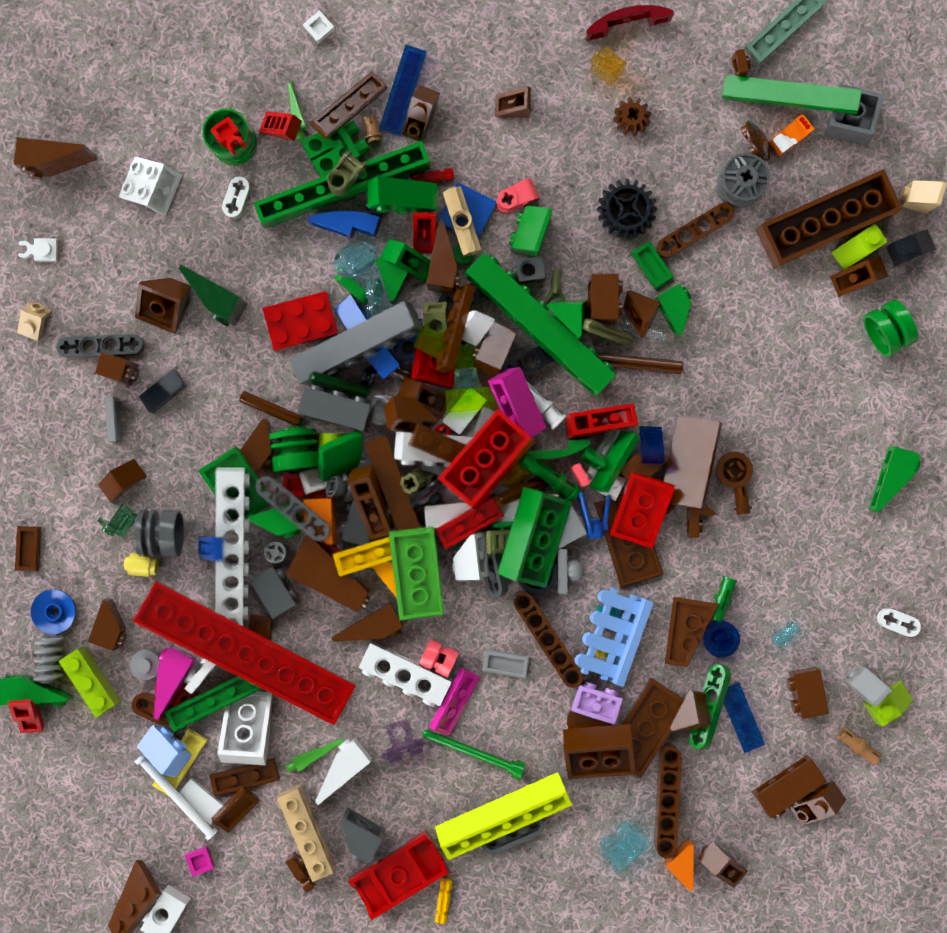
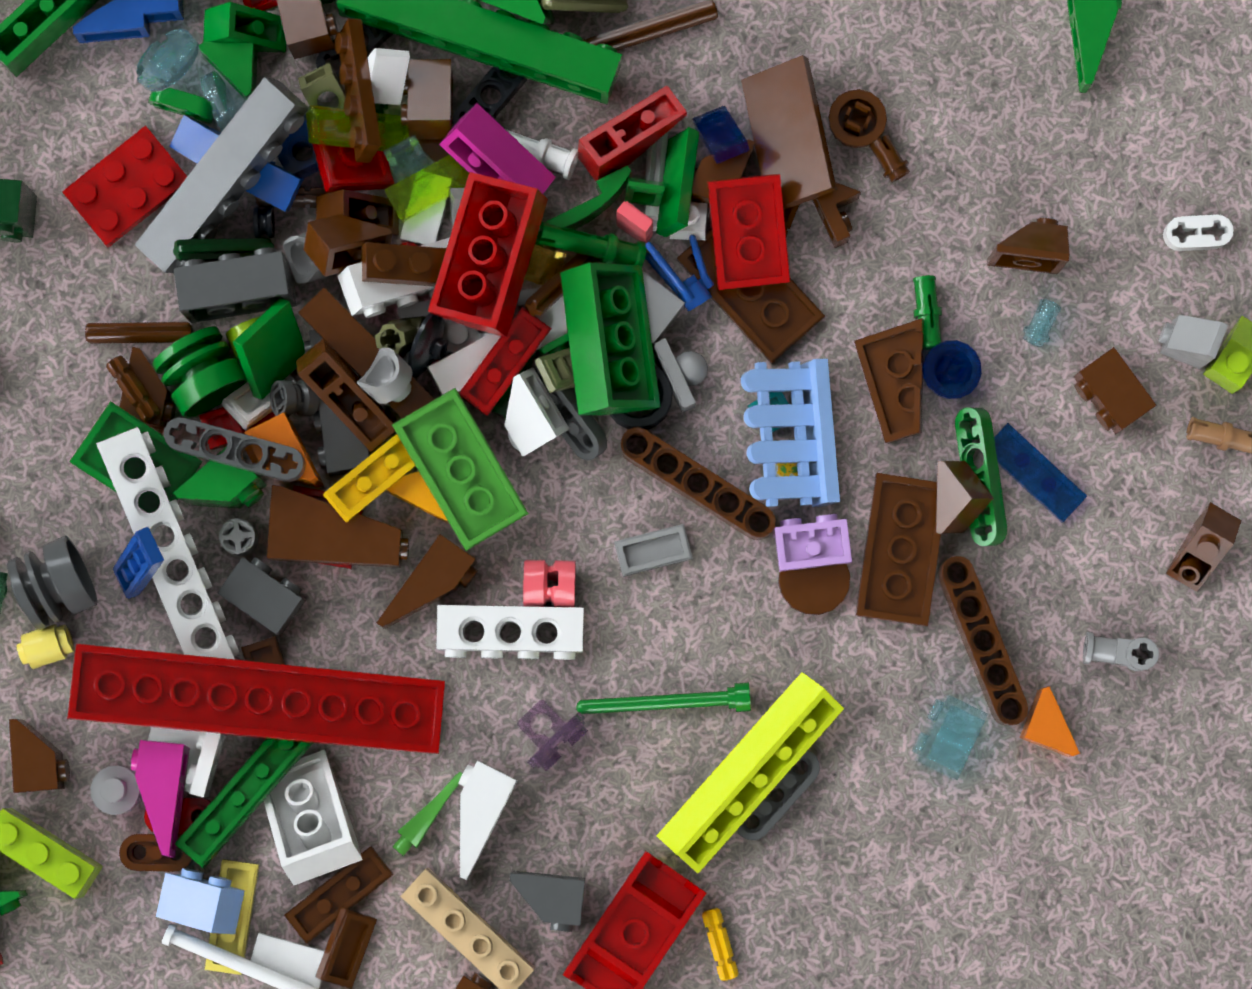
camera: 30 degrees left, 5 degrees down
(252, 443) = (132, 388): none -> reddish brown axle
(397, 505) = (387, 377): none -> light grey piece
(454, 701) = (602, 638): dark pink plate -> none
(598, 751) = (847, 612): reddish brown slope -> none
(722, 864) = (1107, 699): reddish brown slope -> none
(742, 841) = (1119, 651): none -> light grey connector
(789, 787) = (1151, 541): reddish brown brick -> none
(802, 590) = (1035, 248): none -> reddish brown slope

